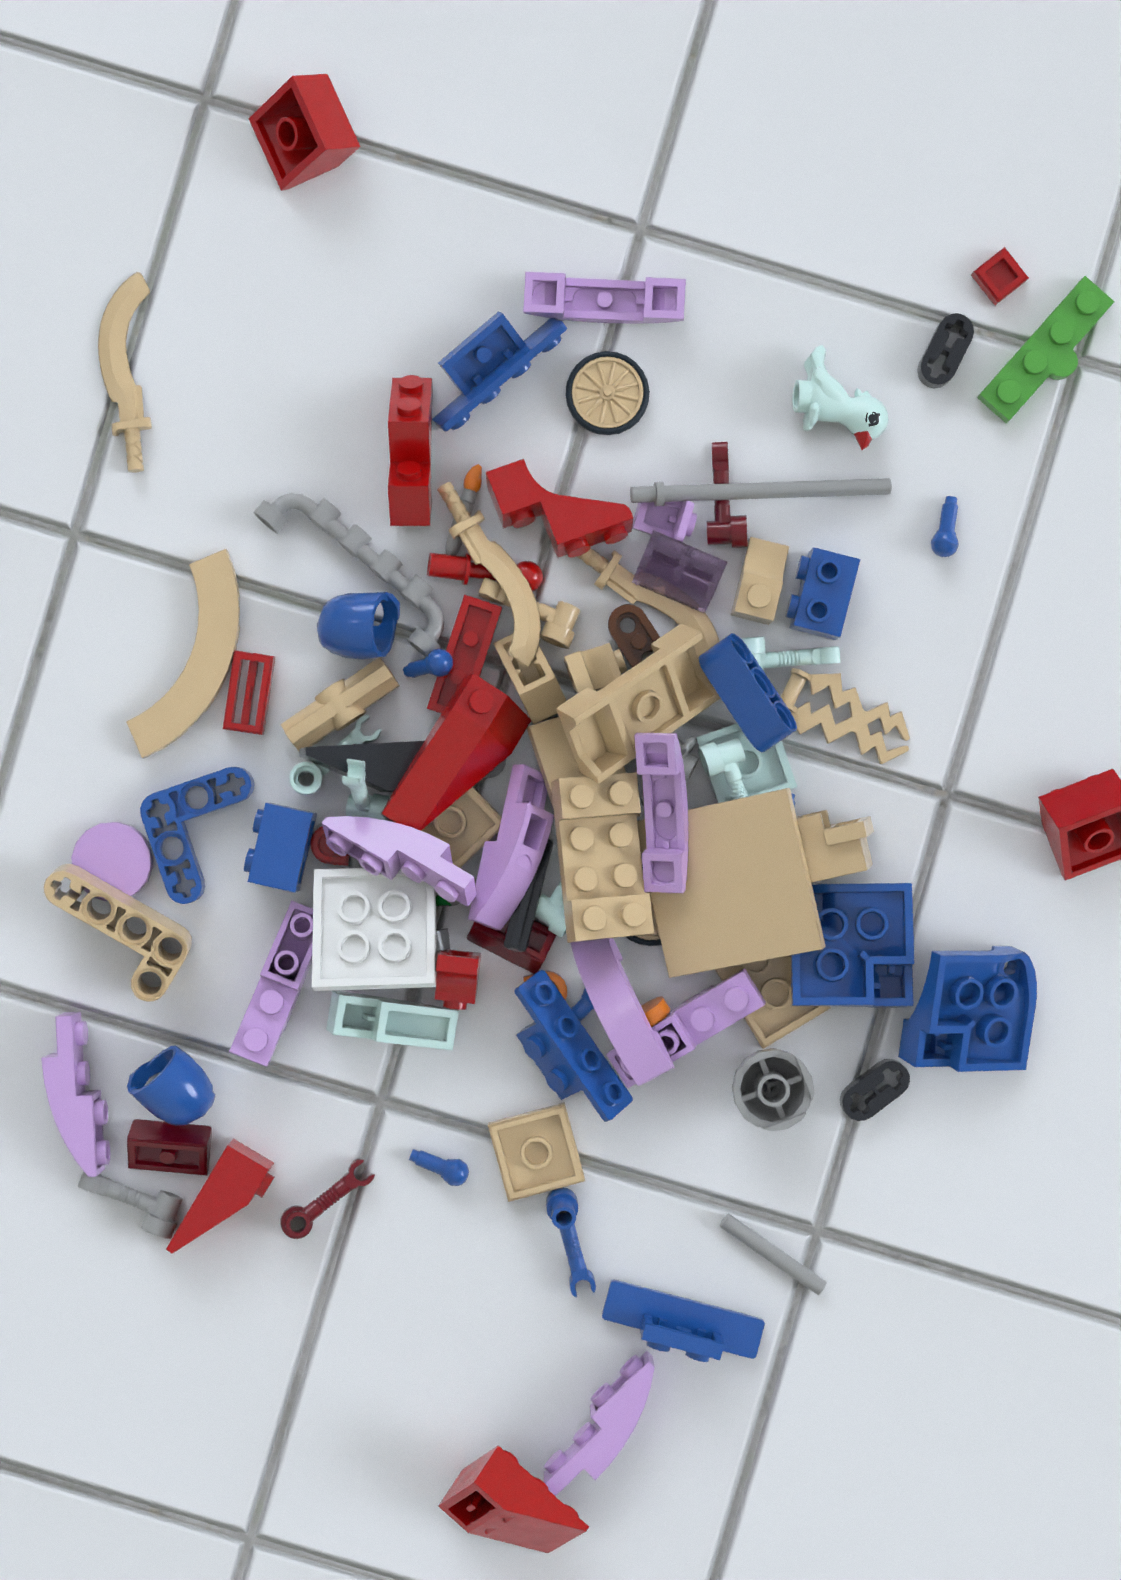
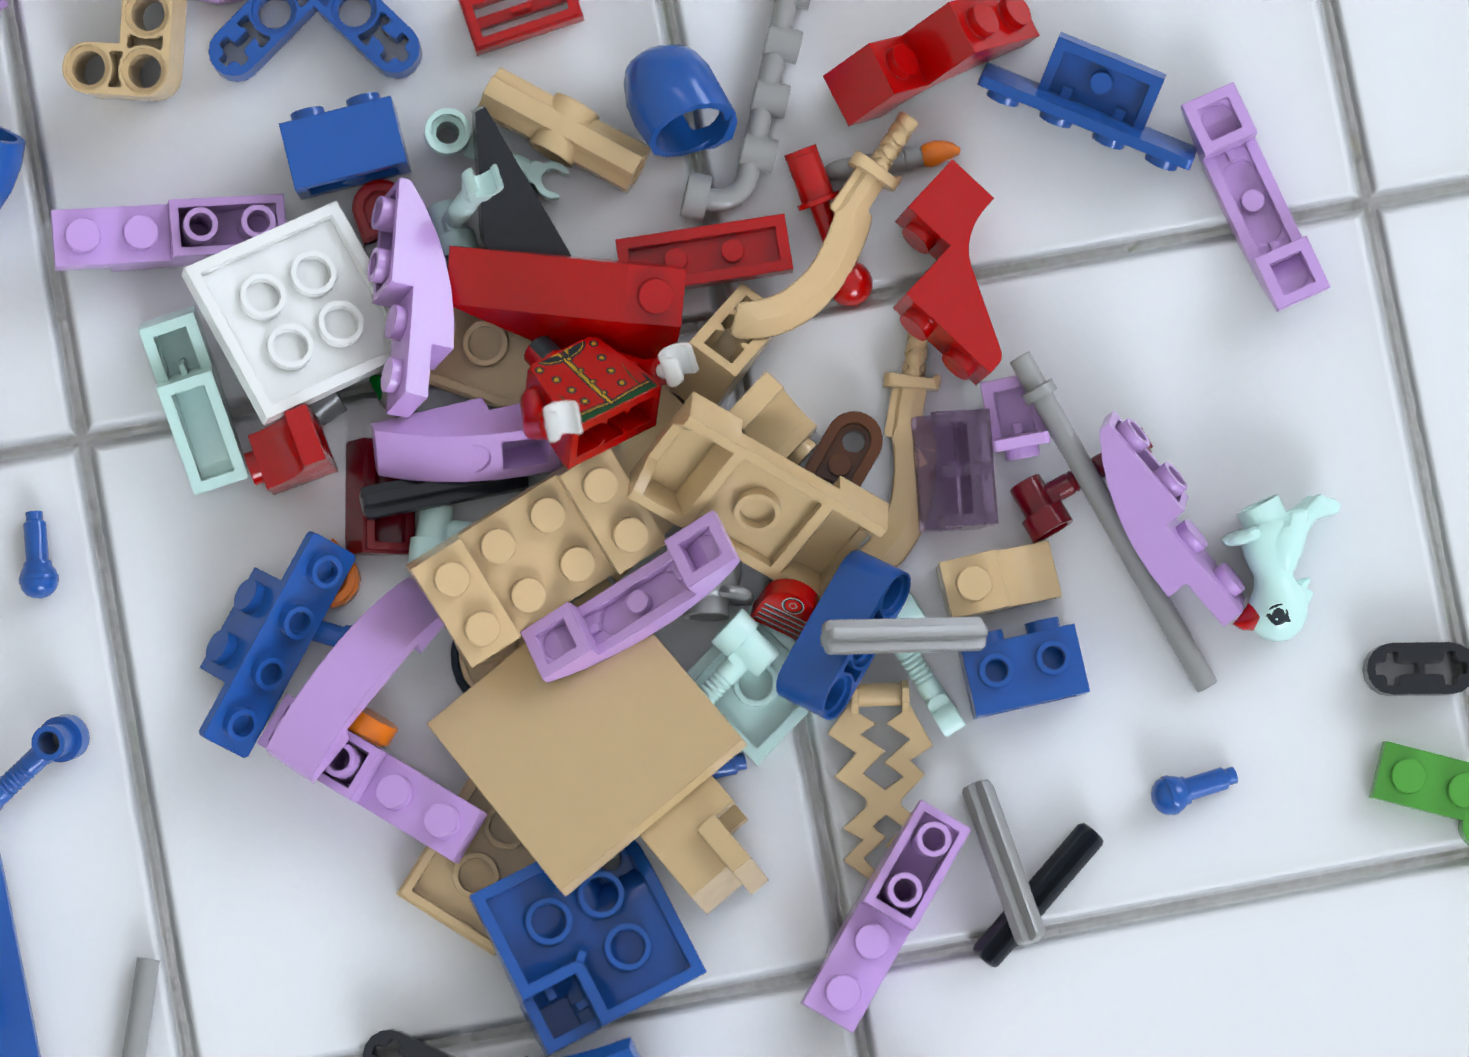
camera: 65 degrees right, 5 degrees down
(437, 663) = (678, 222): blue piece -> none
(523, 771) = (593, 395): none -> red torso
(536, 1152) = (116, 671): tan tile -> none
(558, 620) = (812, 351): tan brick -> none
(607, 393) = (1136, 265): tan wheel -> none
(711, 719) = (785, 606): none -> red tile
(766, 463) = (1148, 505): none -> lavender slope
(771, 656) = (903, 635): none -> light grey axle
(783, 1104) = (320, 932): light grey cylinder -> none
(929, 757) = (885, 915): none -> lavender slope
(935, 666) = (1004, 863): none -> light grey axle
(963, 656) = (1045, 887): none -> black axle

